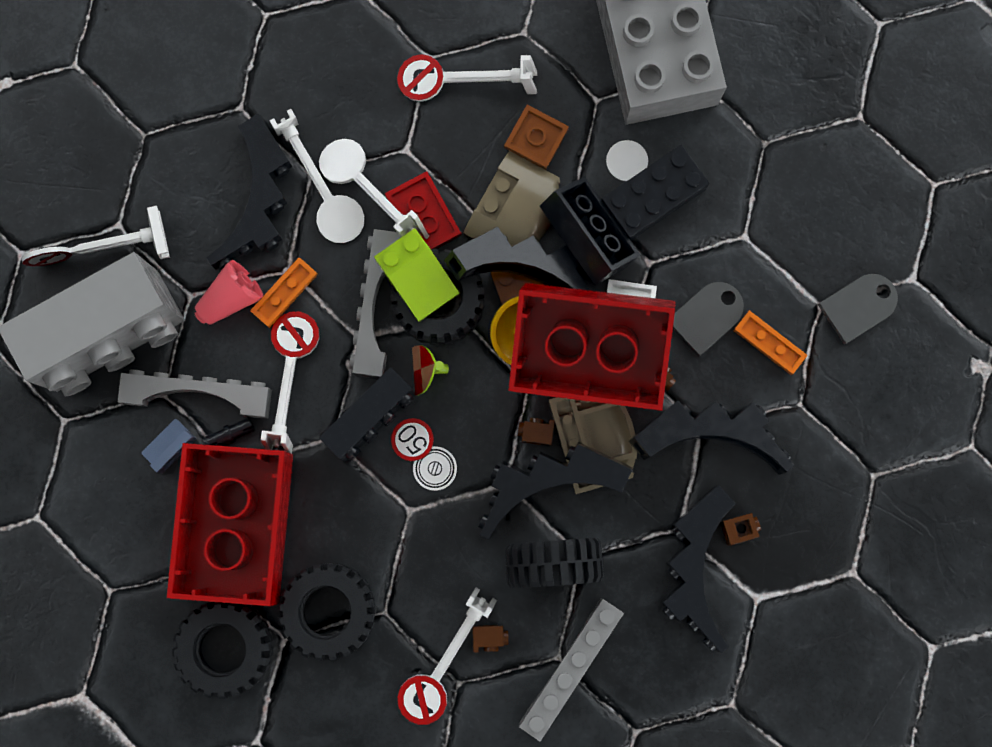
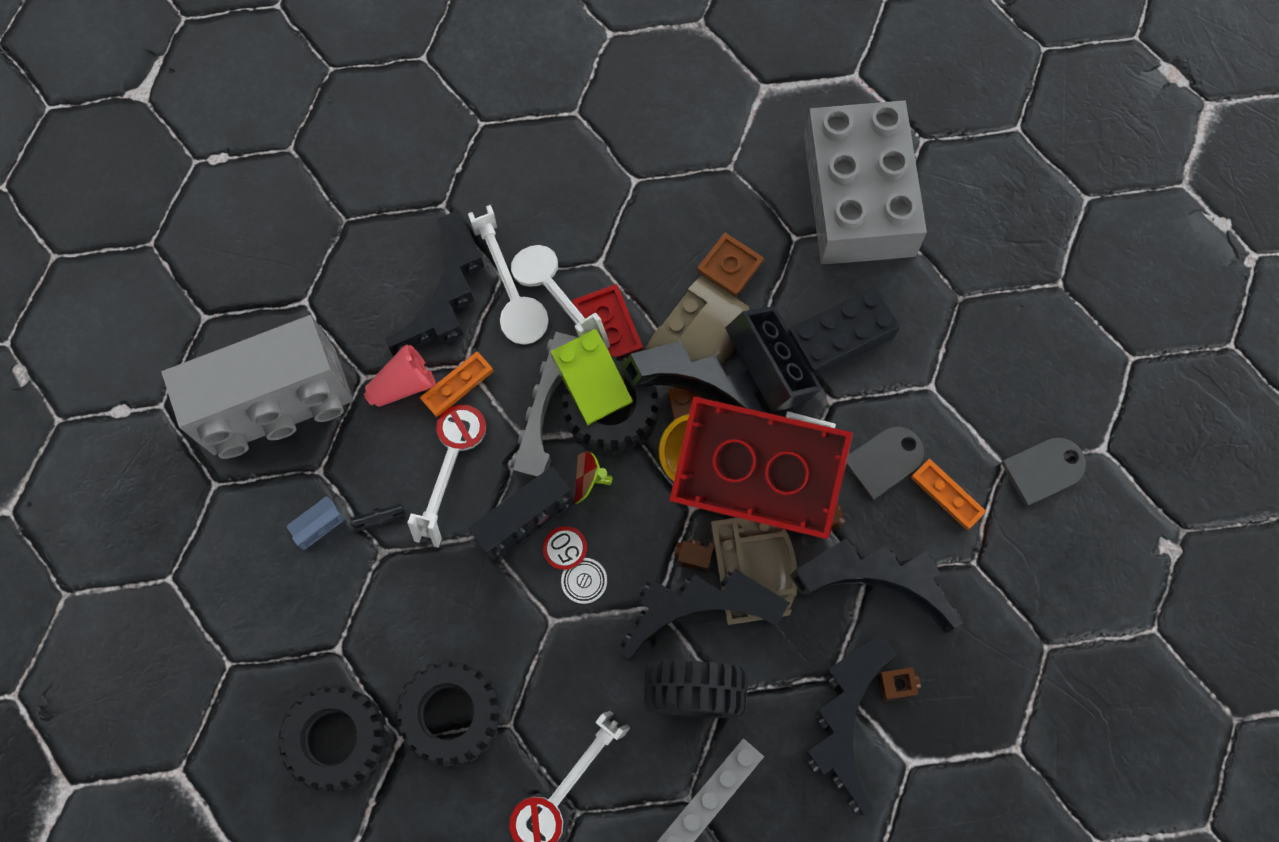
camera: 10 degrees right, 10 degrees down
(58, 254) = (235, 319): white piece -> none
(140, 389) = (296, 461): light grey arch -> none
(230, 525) = (362, 606): red brick -> none
(423, 76) = (626, 197): white piece -> none
(489, 637) = (617, 765): reddish brown brick -> none
(626, 159) = (817, 296): white sticker -> none

